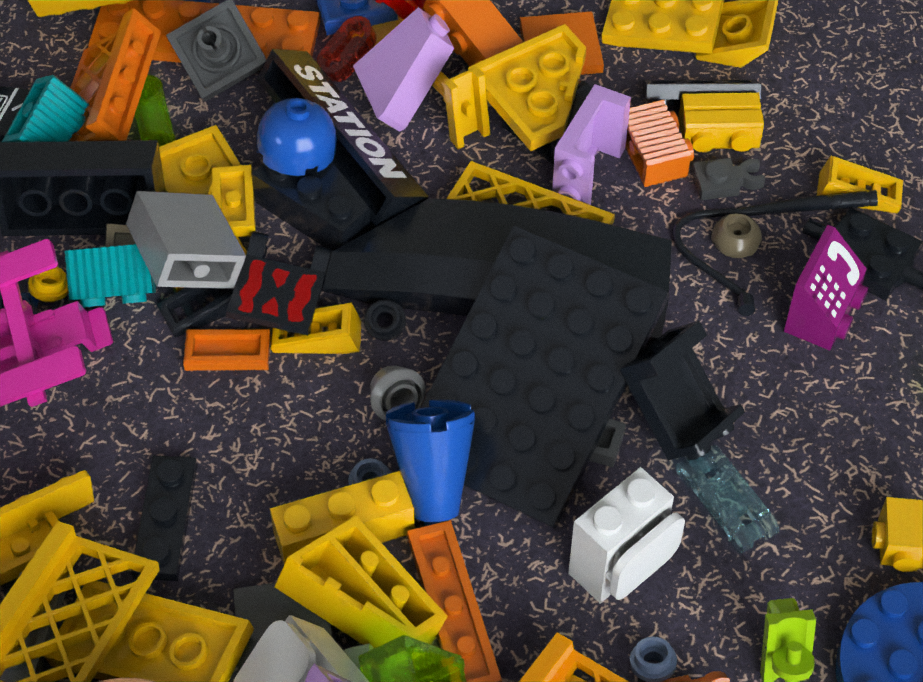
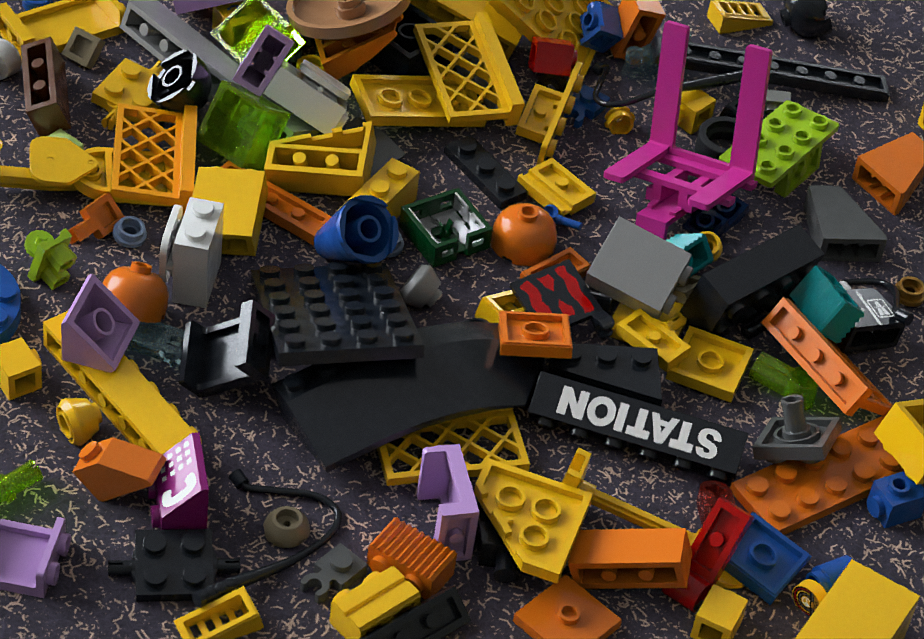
camera: 135 degrees right, 10 degrees down
(118, 440) = (557, 186): none -> yellow plate
(161, 405) = (560, 219): none -> blue hand
(216, 402) = (524, 234): none -> orange cylinder
(279, 434) = (434, 220): none -> dark green piece
(296, 137) = (648, 368): blue cylinder -> none
(362, 232) = (535, 334): none -> orange plate
(404, 67) = (648, 489): lavender slope -> none
(529, 598) = (244, 204): none -> yellow brick
(727, 536) = (139, 291): none -> orange cylinder
(808, 451) = (124, 397): none -> yellow brick
(811, 483) = (97, 328): none -> lavender slope
(873, 434) = (78, 419): none -> yellow cone
(876, 337) = (117, 468): none -> orange slope

